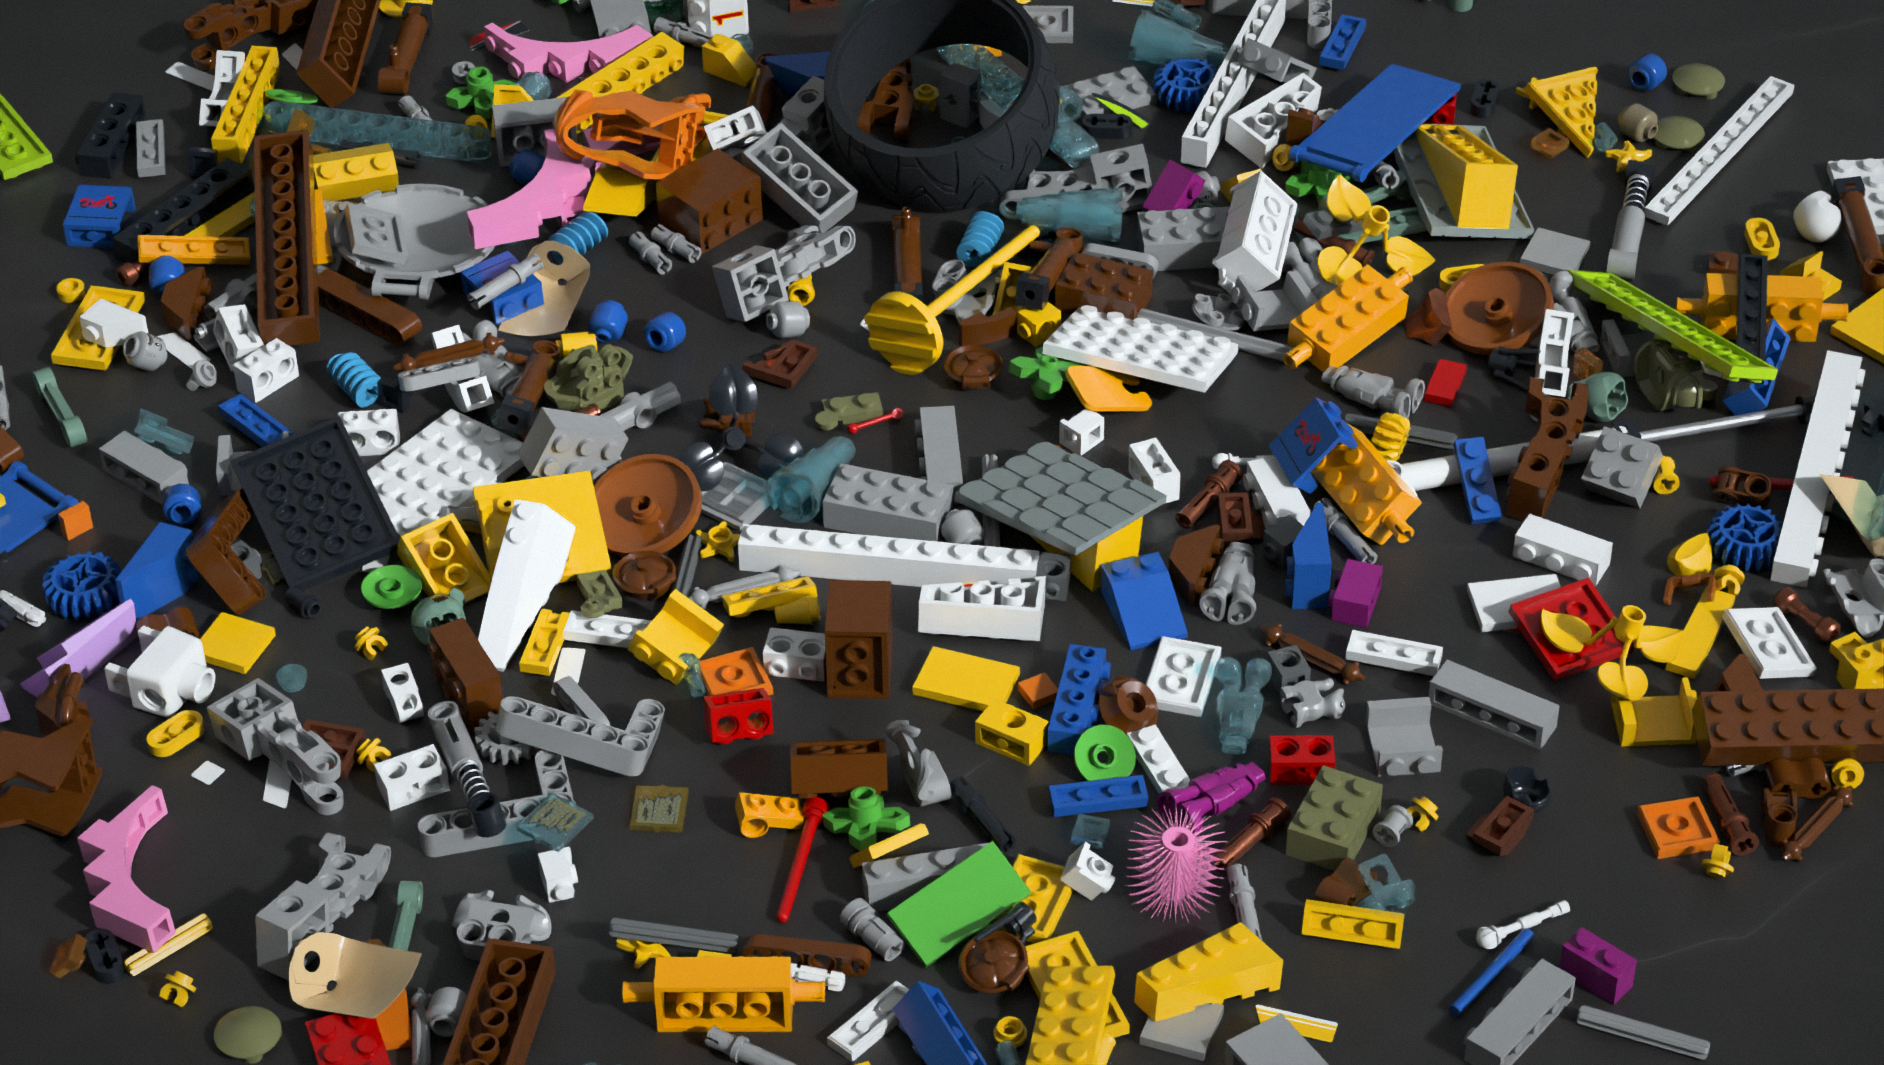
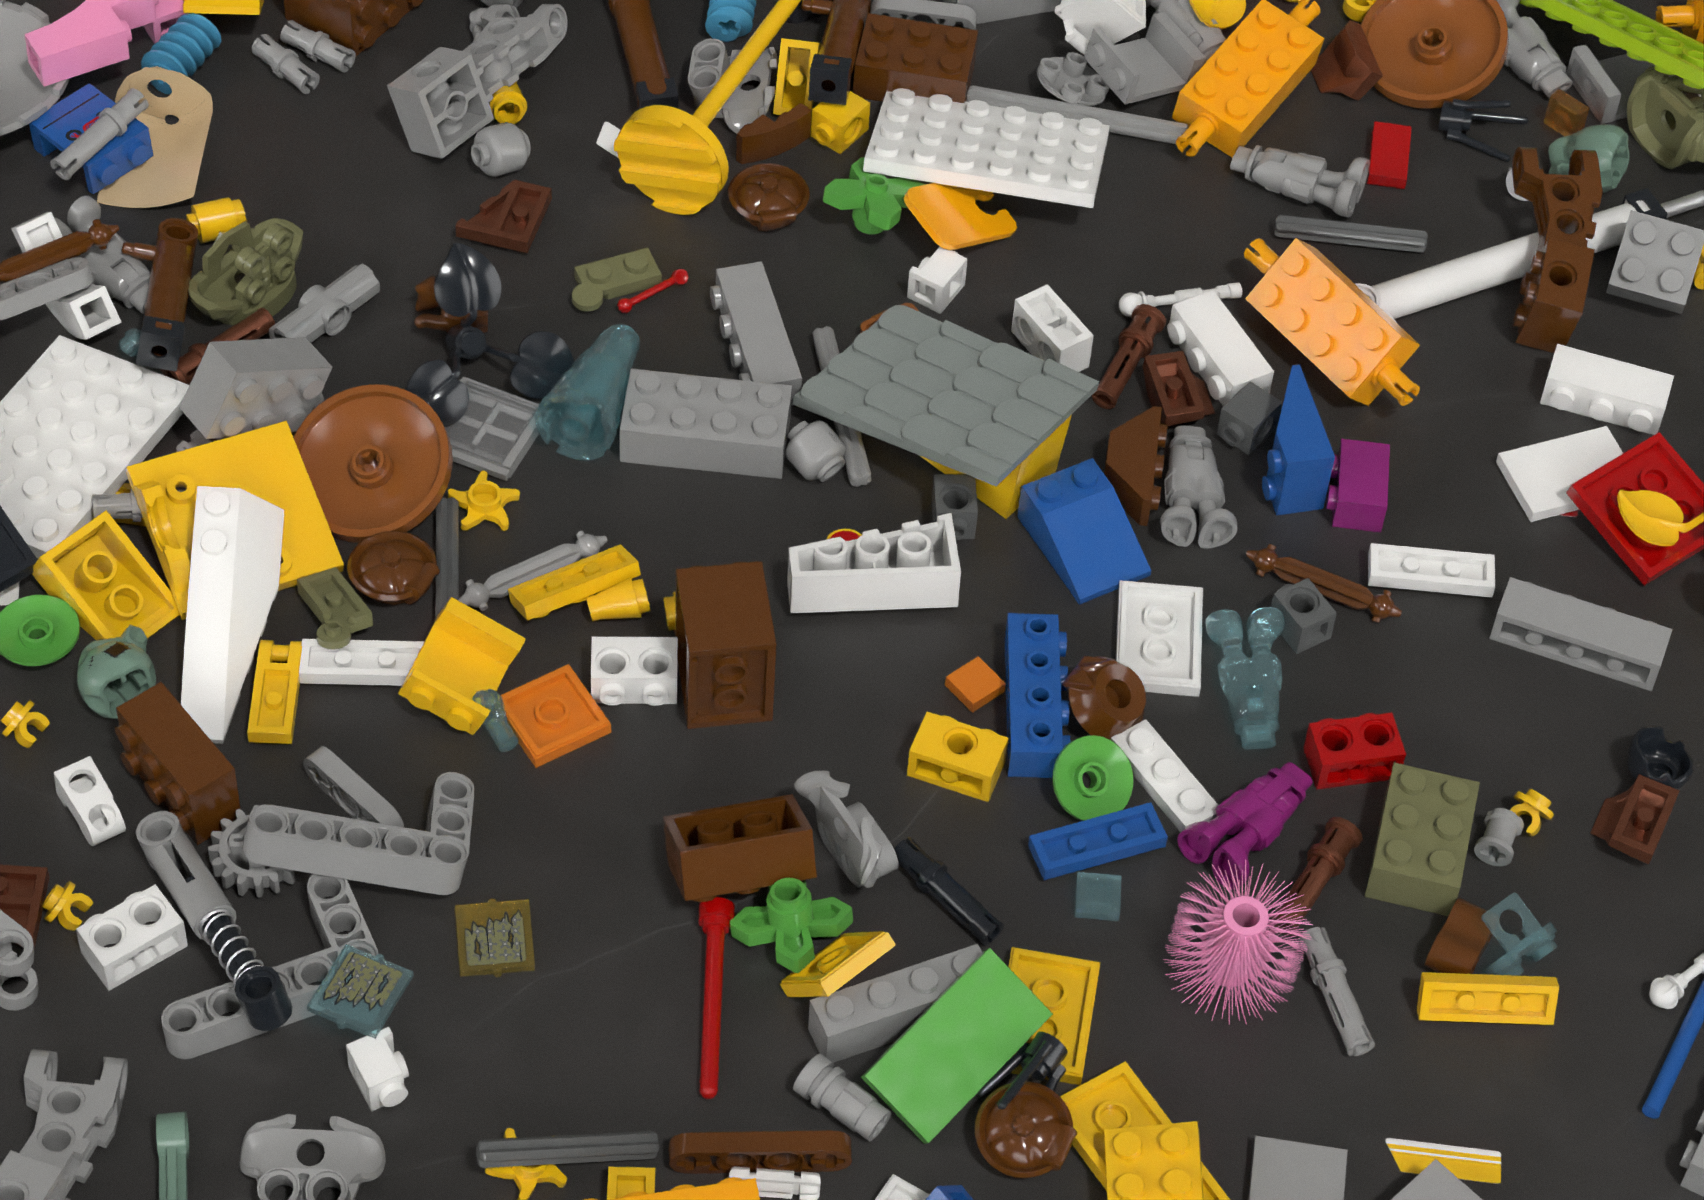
camera: 15 degrees left, 10 degrees up
(569, 664) = (314, 724): white sticker -> none
(608, 321) = (252, 176): blue head -> none
(665, 332) = (335, 185): blue head -> none
(738, 708) = (577, 780): red brick -> none
(760, 812) = (645, 928): light orange plate -> none
(880, 558) = (720, 506): white brick -> none
(965, 679) = (872, 680): yellow tile -> none
(1088, 873) = (1116, 967): white brick -> none
(1208, 972) = (1324, 1104): yellow wedge -> none
(1307, 702) = (1341, 659): light grey animal -> none
(1309, 441) = (1260, 273): blue panel -> none
(1338, 525) = (1324, 396): light grey pin -> none
(1391, 435) = (1348, 244): yellow gear -> none
(1402, 736) = (1474, 699): light grey panel -> none
(1477, 480) = (1474, 300): blue plate -> none
(1554, 347) = (1524, 120): white arch -> none

